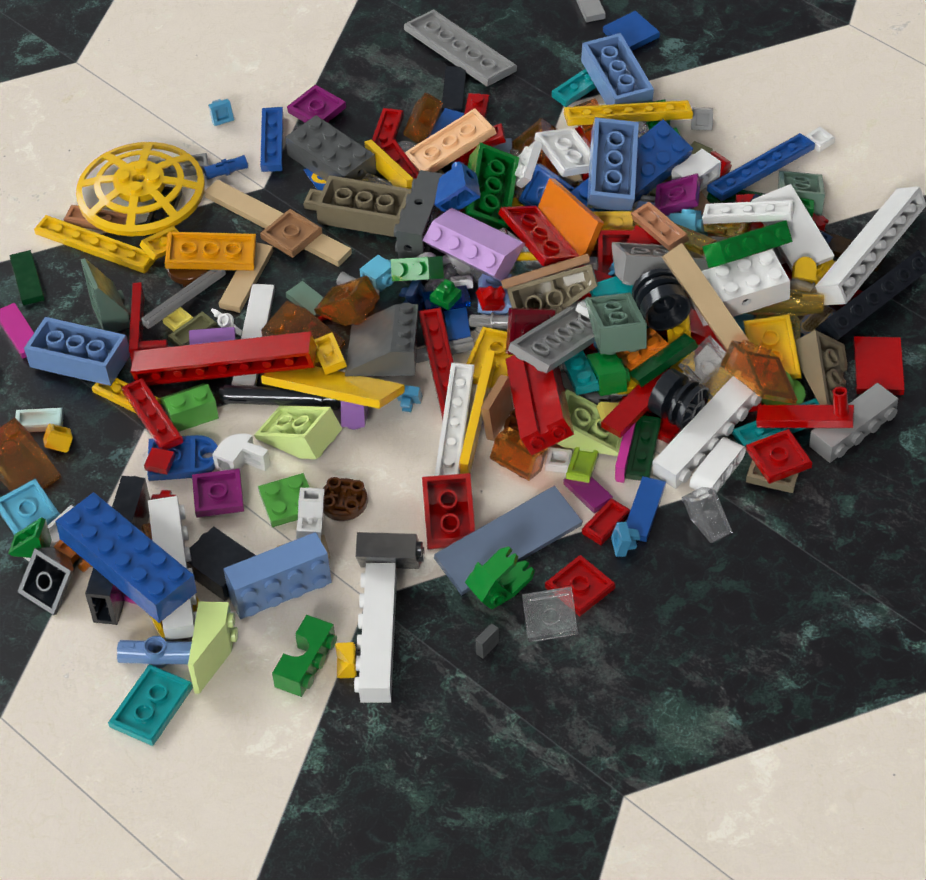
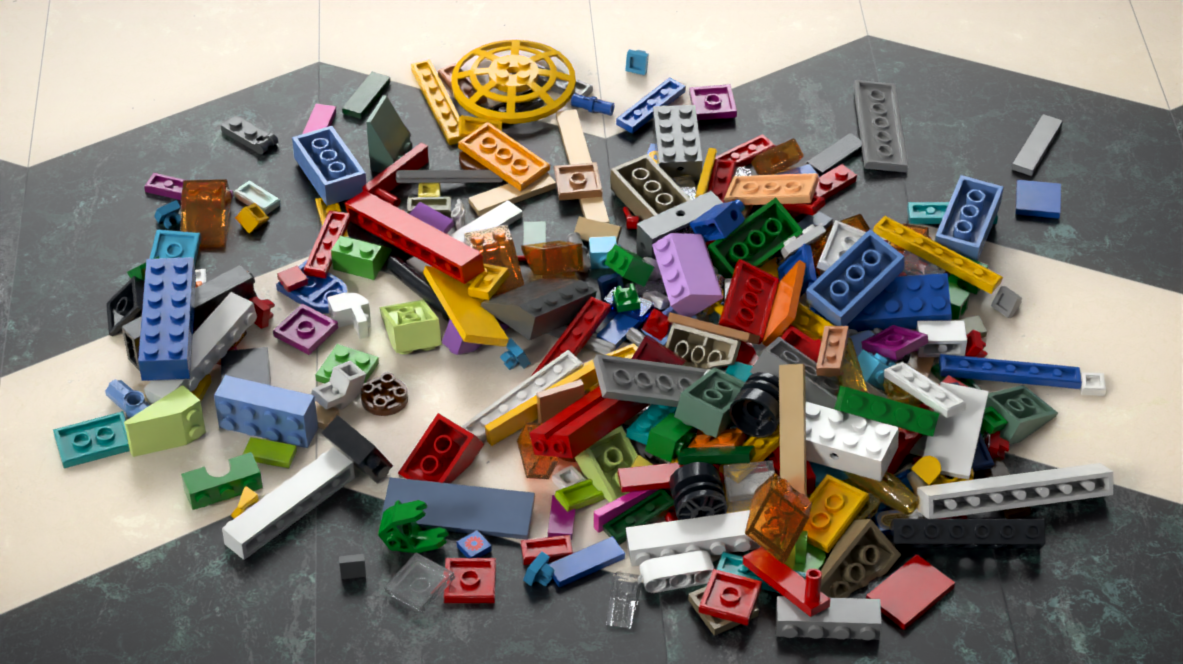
camera: 40 degrees right, 5 degrees down
(313, 604) = (271, 452): none -> lime tile
(351, 261) = (592, 228): none -> tan tile
(366, 237) = (631, 220): none -> red hand
(552, 558) = (474, 545): none -> tile

